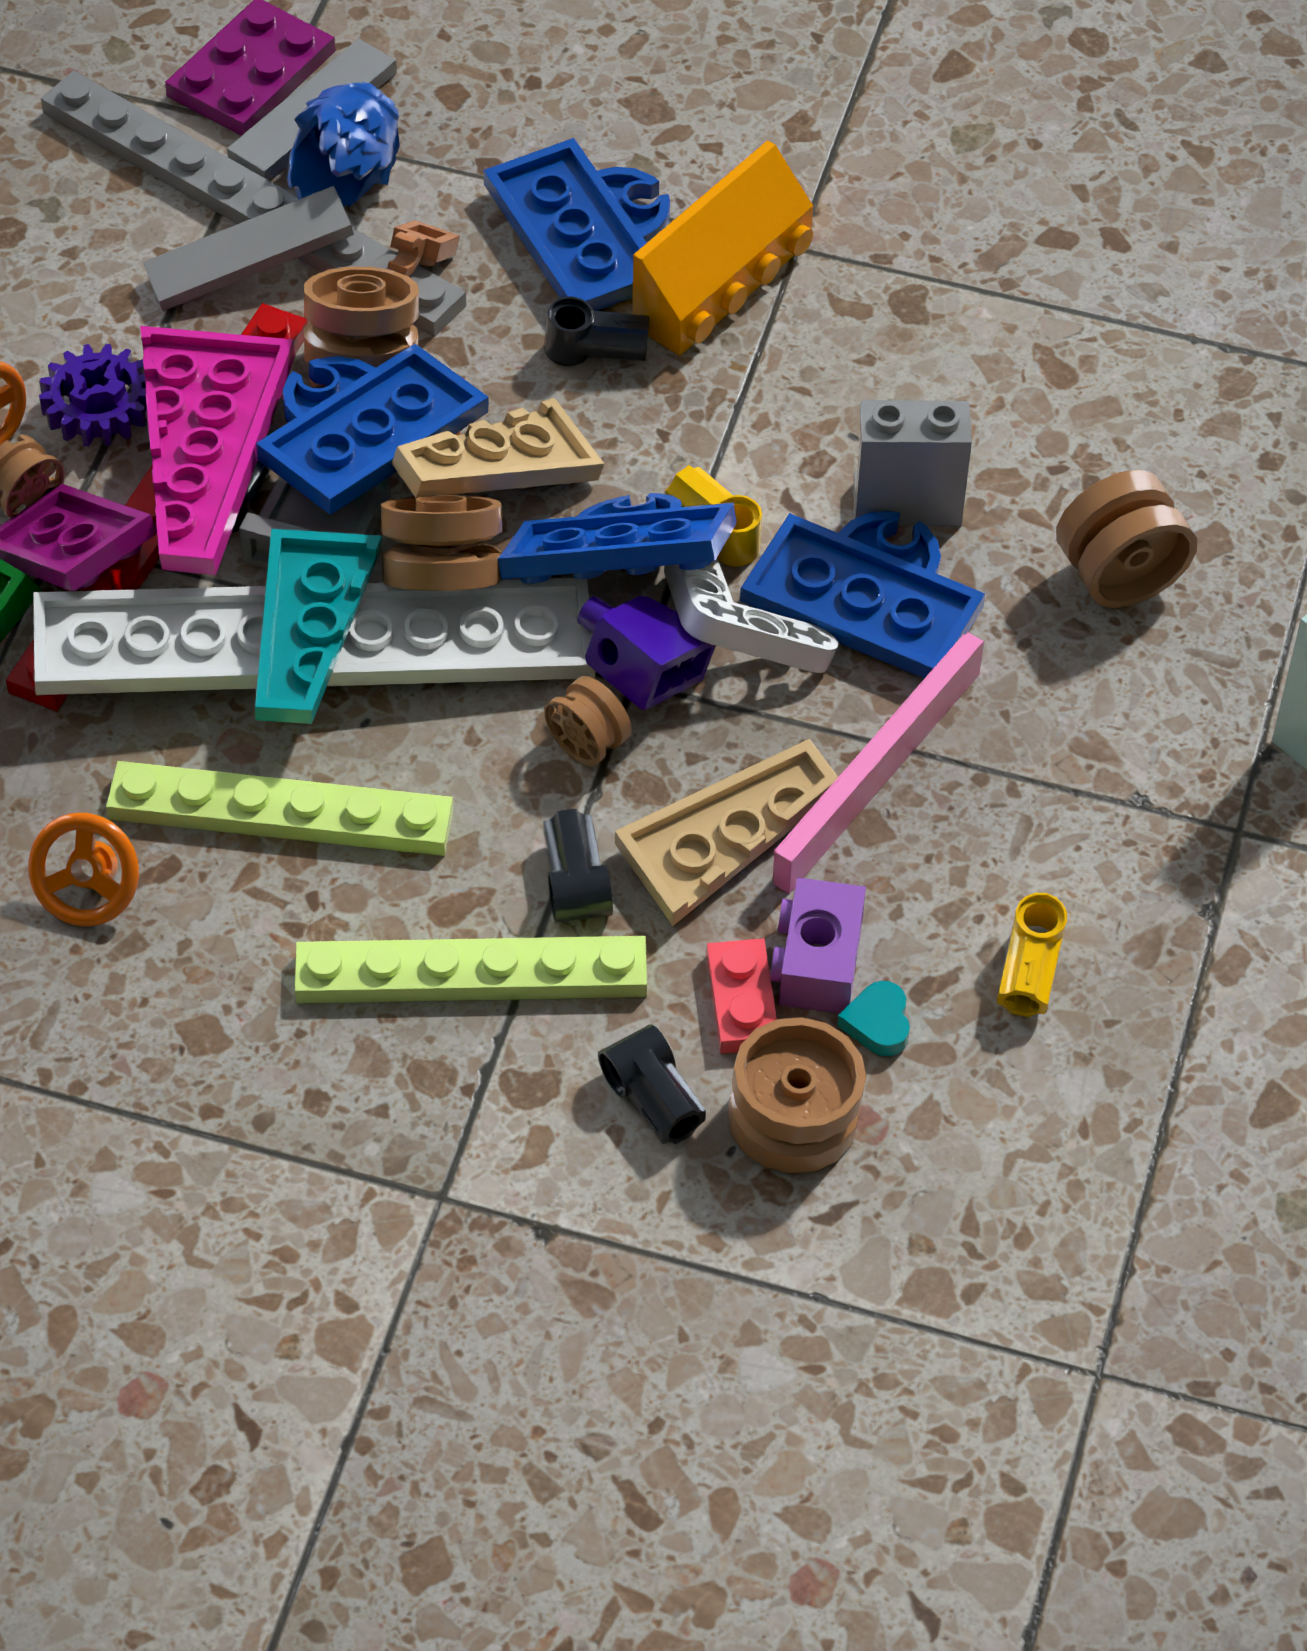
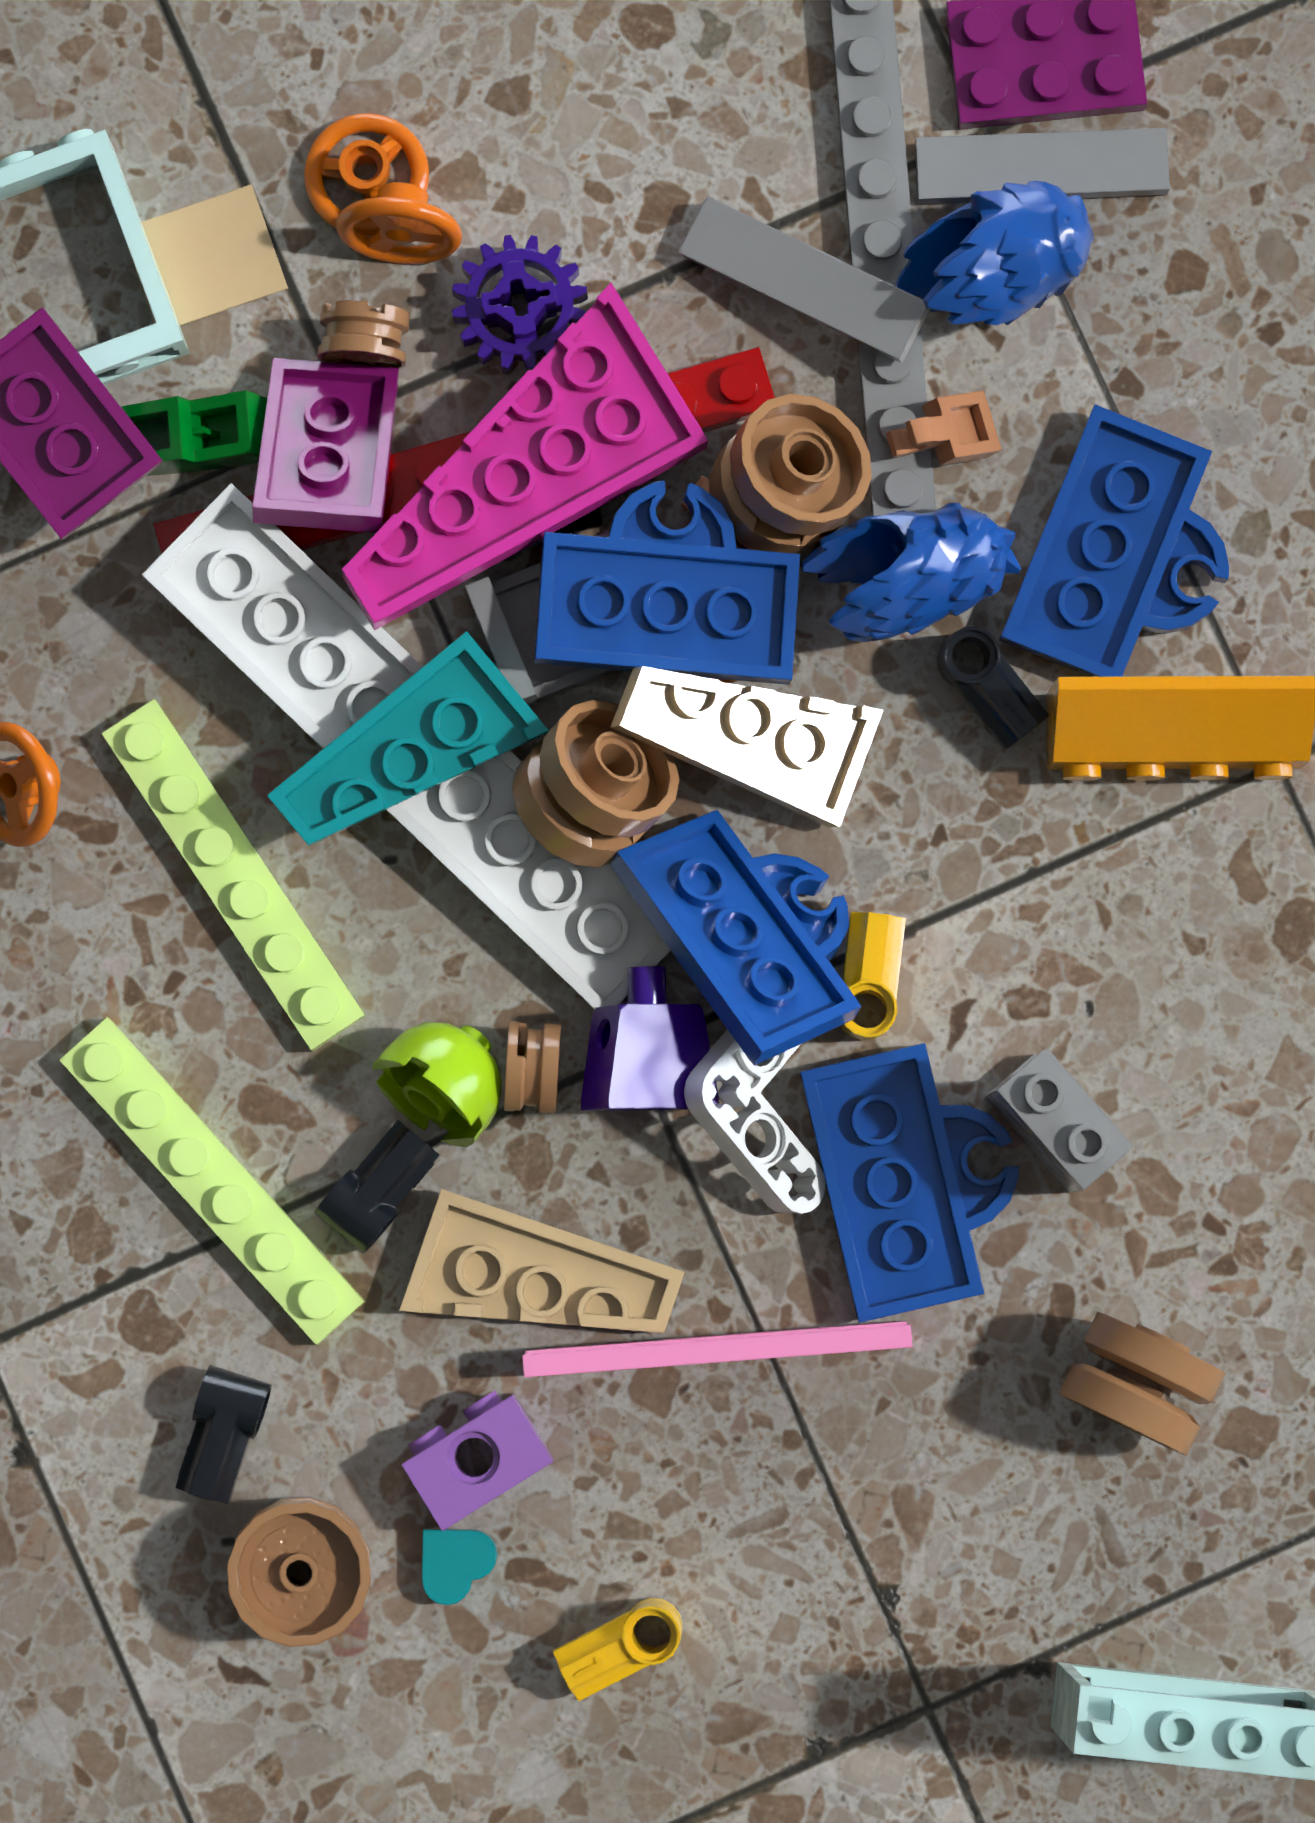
camera: 50 degrees right, 30 degrees up
(483, 305) = (912, 568): none -> blue head
(543, 771) = (442, 1077): none -> lime cylinder
(739, 990) = (380, 1428): coral plate -> none

